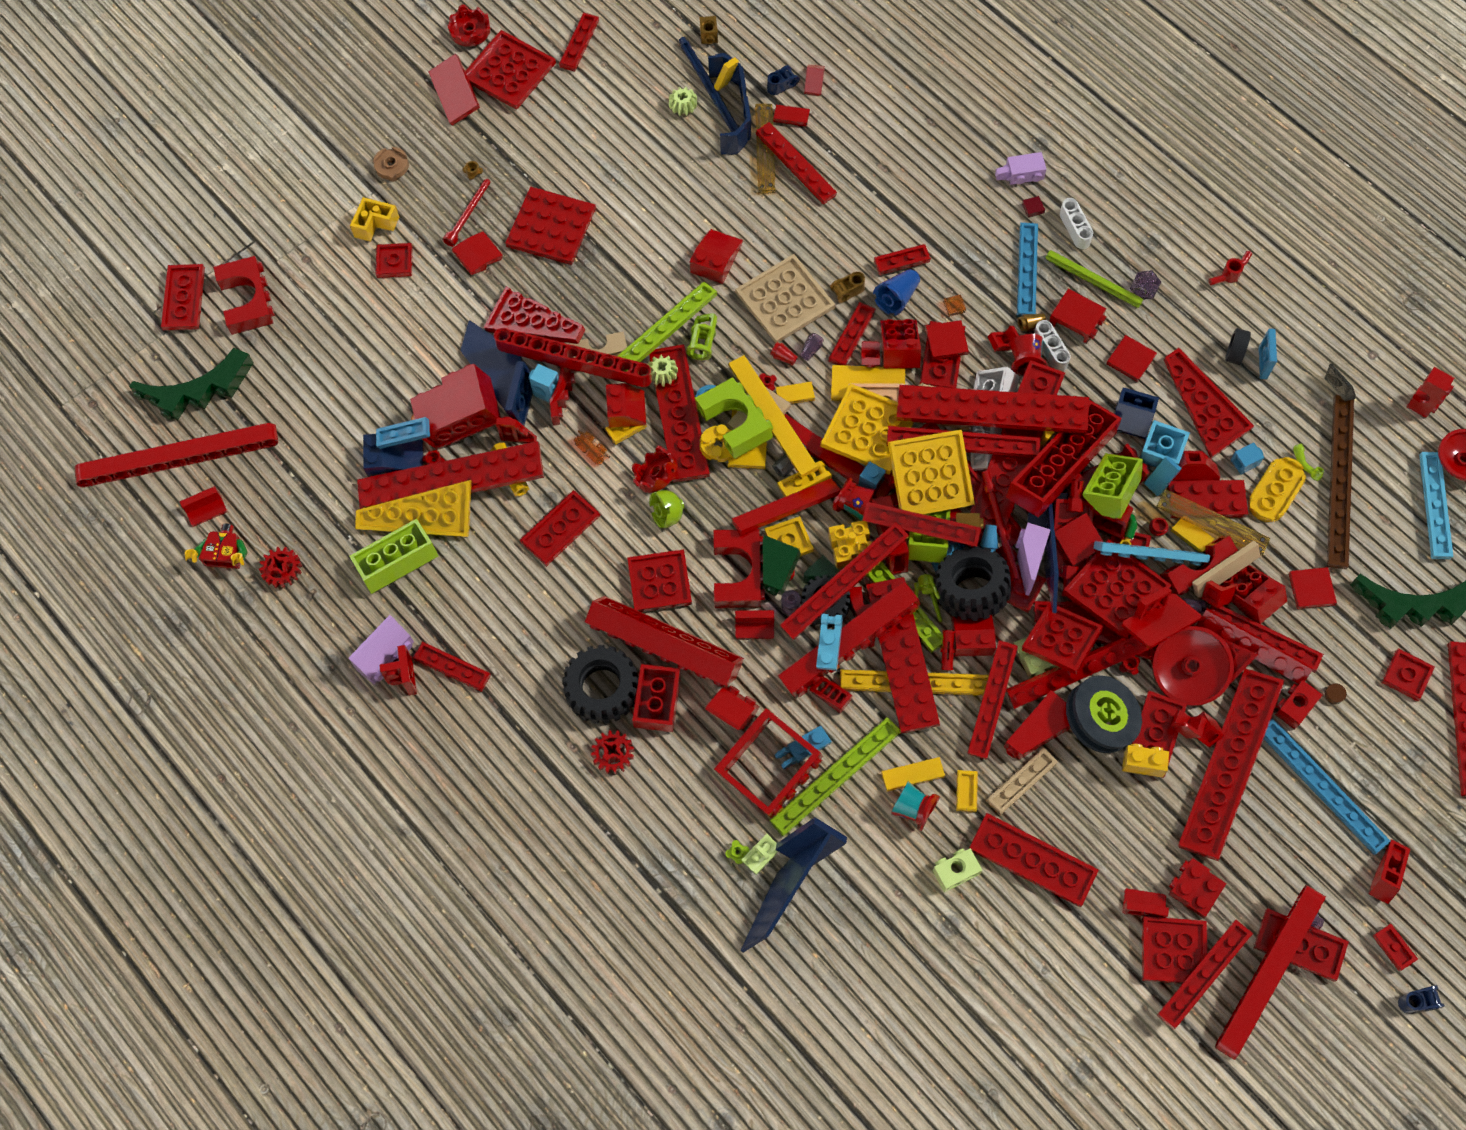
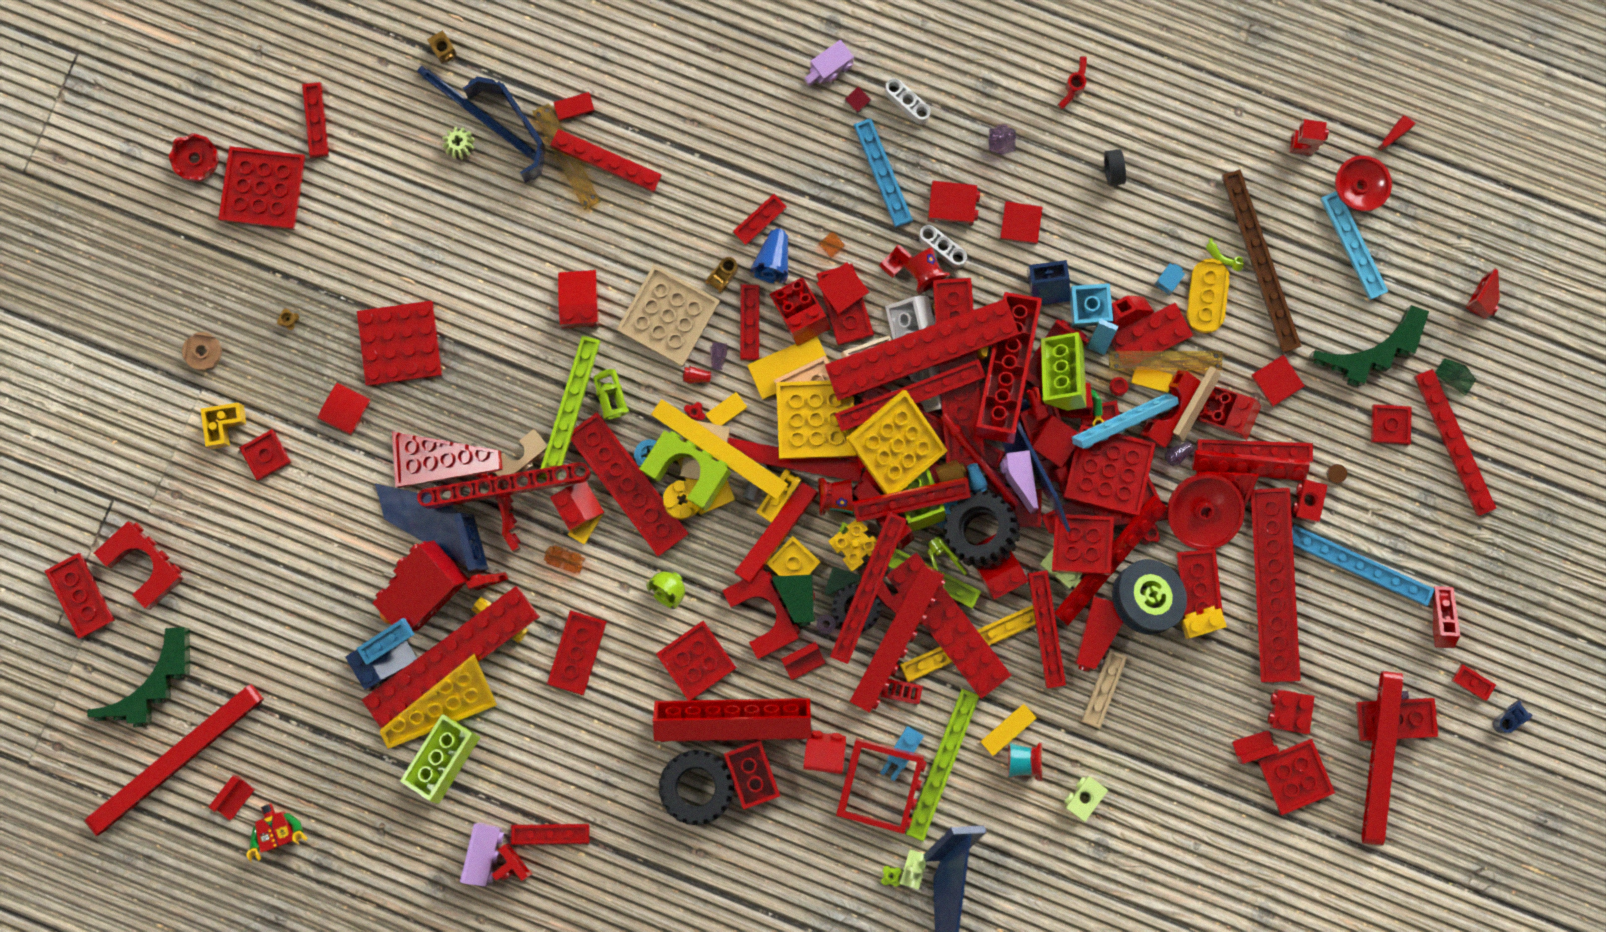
camera: 30 degrees left, 15 degrees up
(290, 565) = (344, 813): red gear -> none
(432, 455) = (421, 638): red plate -> none
(451, 237) = (309, 403): red piece -> none
(454, 89) = (219, 238): tile -> none
(543, 382) = (487, 519): medium azure brick -> none
(617, 745) = (739, 833): red gear -> none
(646, 474) = (629, 558): red plate -> none
(669, 370) = (585, 456): yellowish green gear -> none
(726, 74) = (489, 97): yellow tile -> none
(781, 80) = (547, 68): dark blue piece -> none
(814, 79) = (576, 53): red slope -> none
(829, 642) = (882, 652): medium azure plate -> none
(870, 353) = (778, 337): red bracket -> none
(872, 476) = (841, 467): dark azure brick -> none
(948, 636) = (990, 611): red pin -> none
(966, 791) = (1061, 721): yellow tile -> none
(1029, 321) = (911, 229): pearl gold cone -> none
(1033, 860) = (1145, 756): red plate -> none
(1094, 279) = (950, 153): lime axle -> none
(1160, 617) = (1161, 486): red bracket -> none
(1189, 726) = (1225, 568): red panel -> none
(1204, 974) = (1330, 787): red plate -> none
(1211, 411) = (1115, 243): red wing -> none
(1212, 731) = (1241, 563): red panel -> none
(1217, 595) = (1199, 433): red panel -> none
(1267, 353) = (1145, 163): dark azure tile -> none
(1340, 383) = (1222, 163): clear smoke slope -> none

